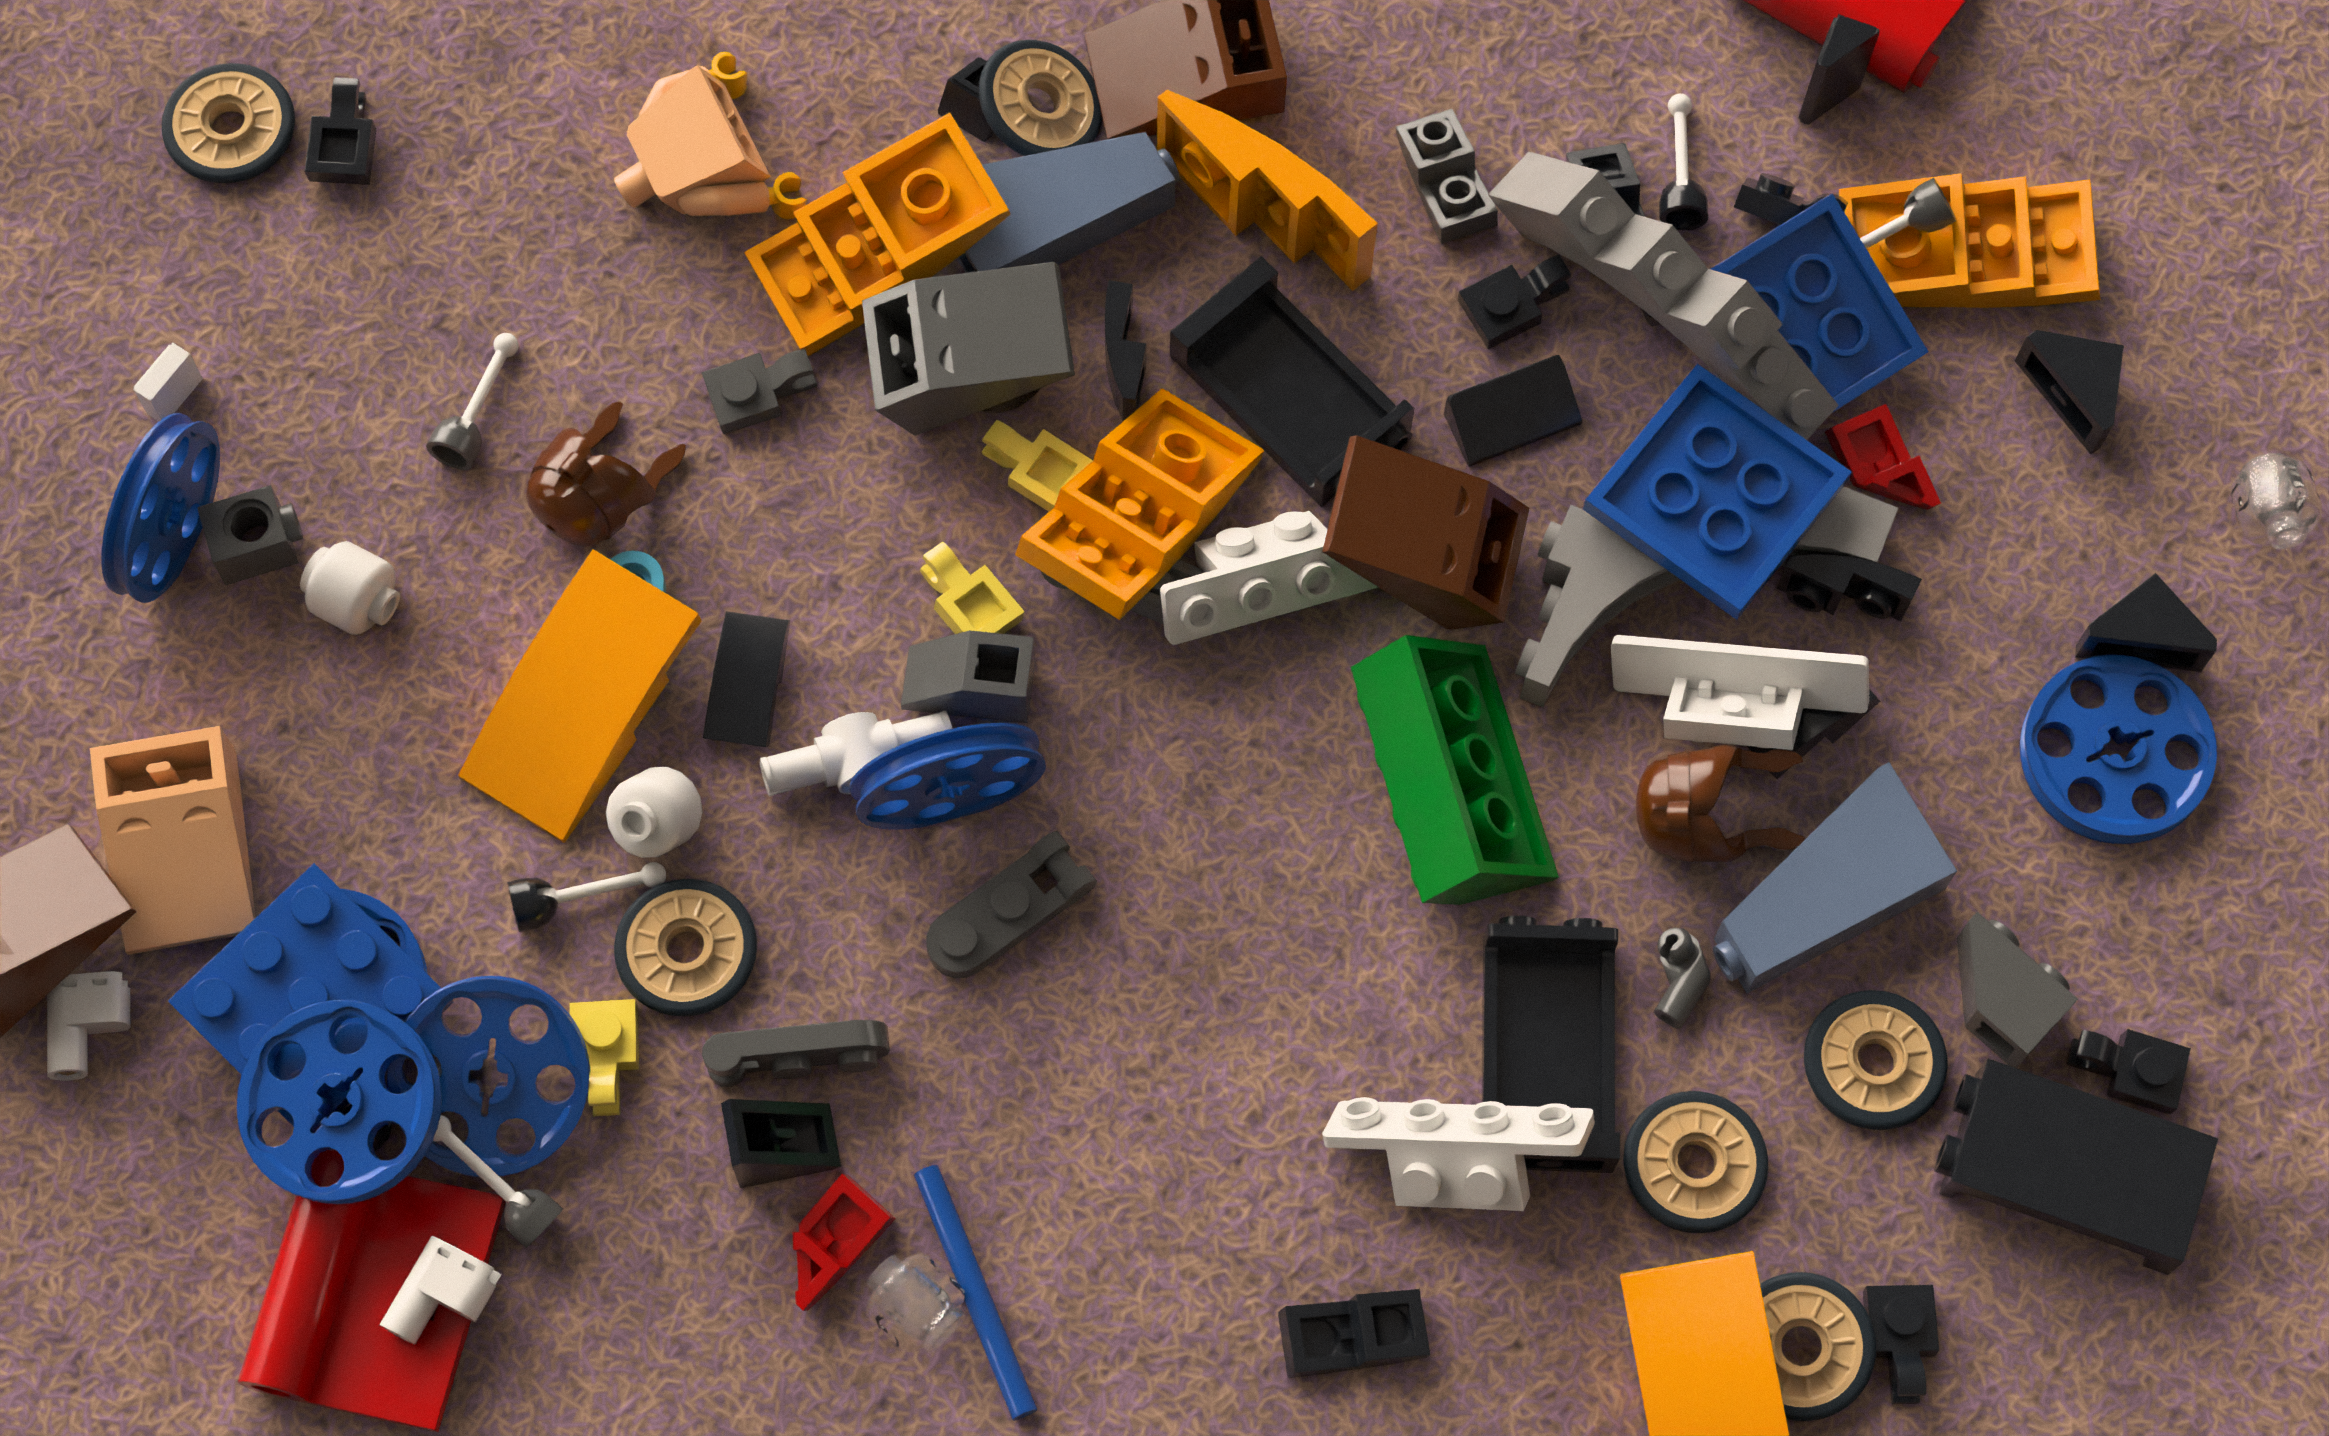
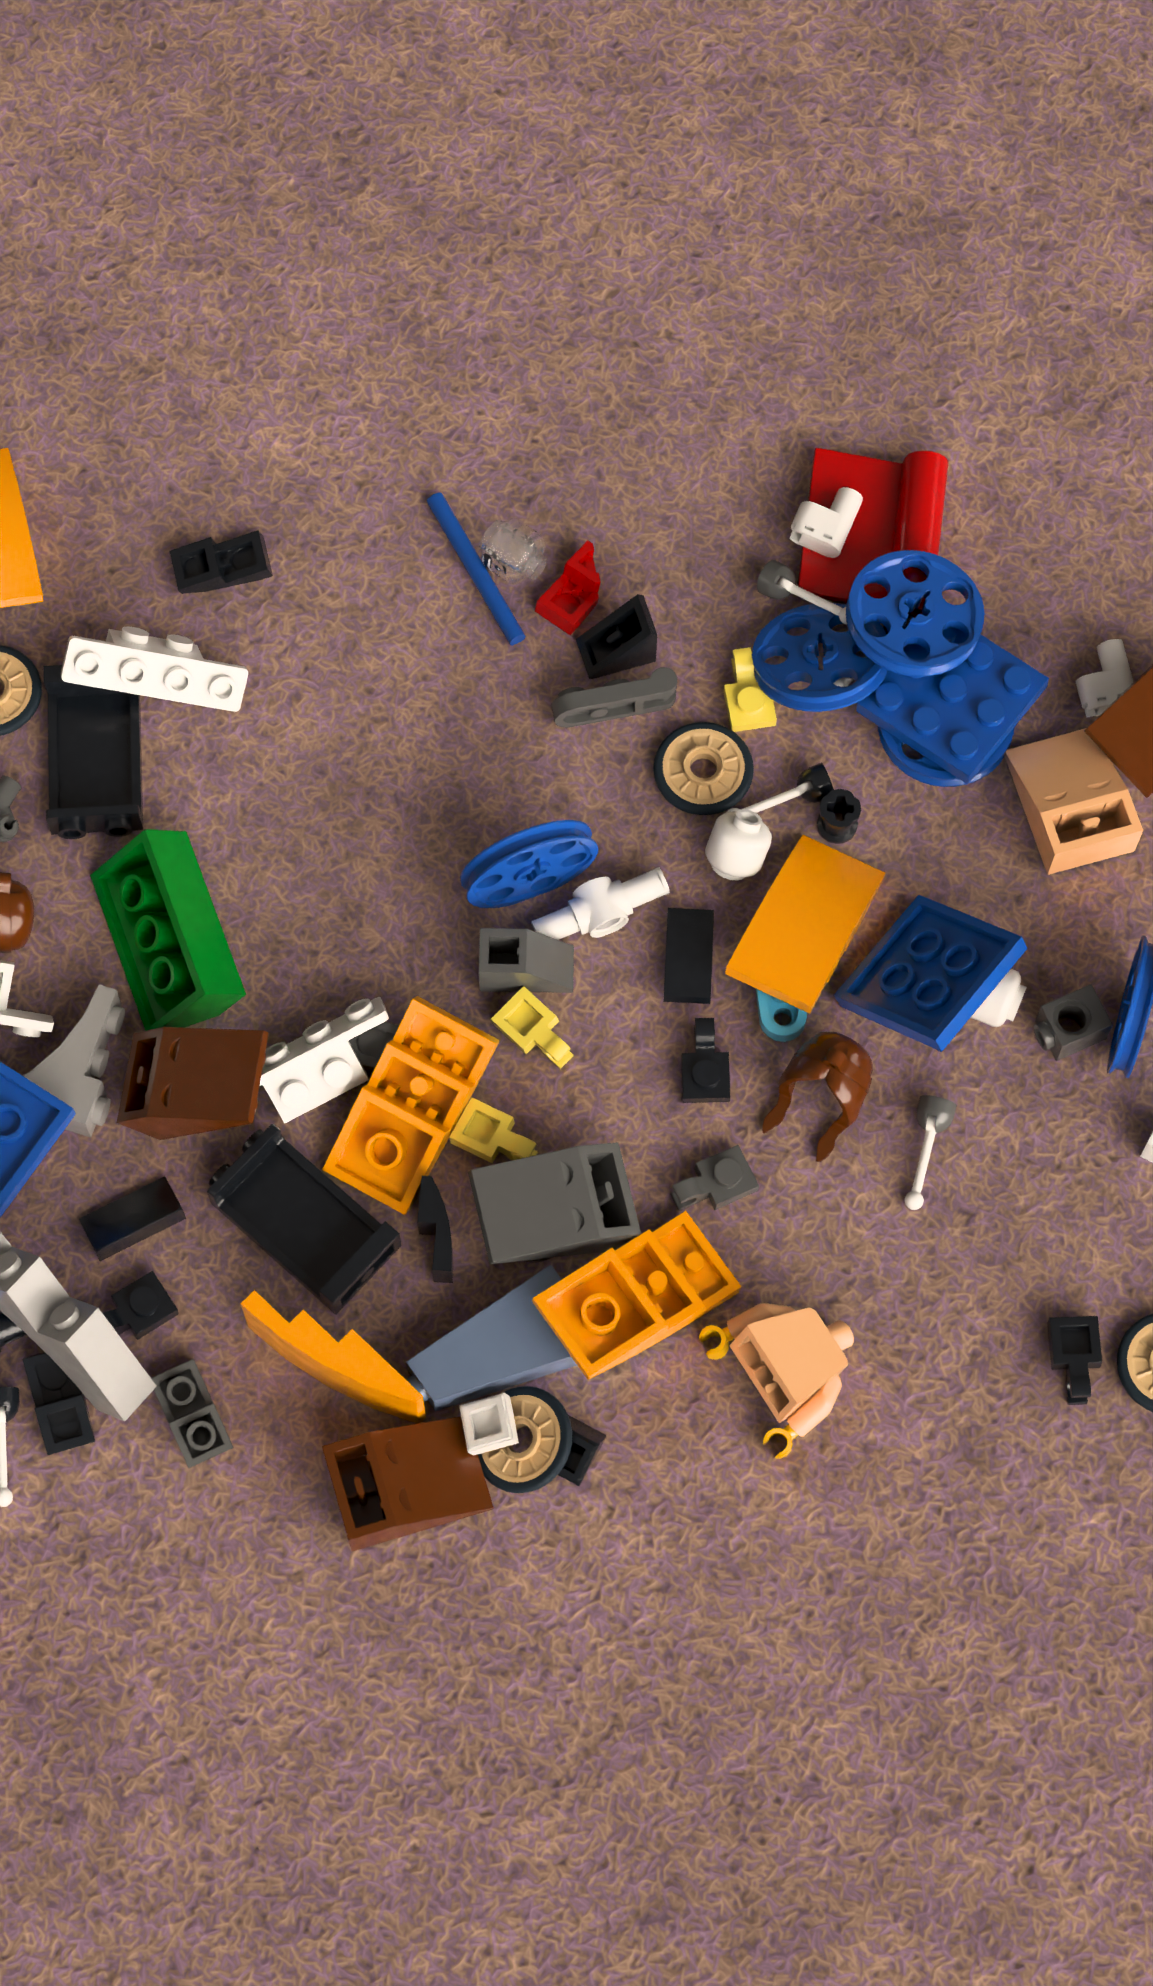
camera: 175 degrees right, 0 degrees up
(424, 597) = (930, 972): none -> blue plate
(496, 833) = (842, 802): none -> black bush
(745, 529) = (705, 1071): none -> black plate
(1006, 909) = (481, 814): dark grey plate -> none
(1079, 111) = (488, 1424): none -> white tile

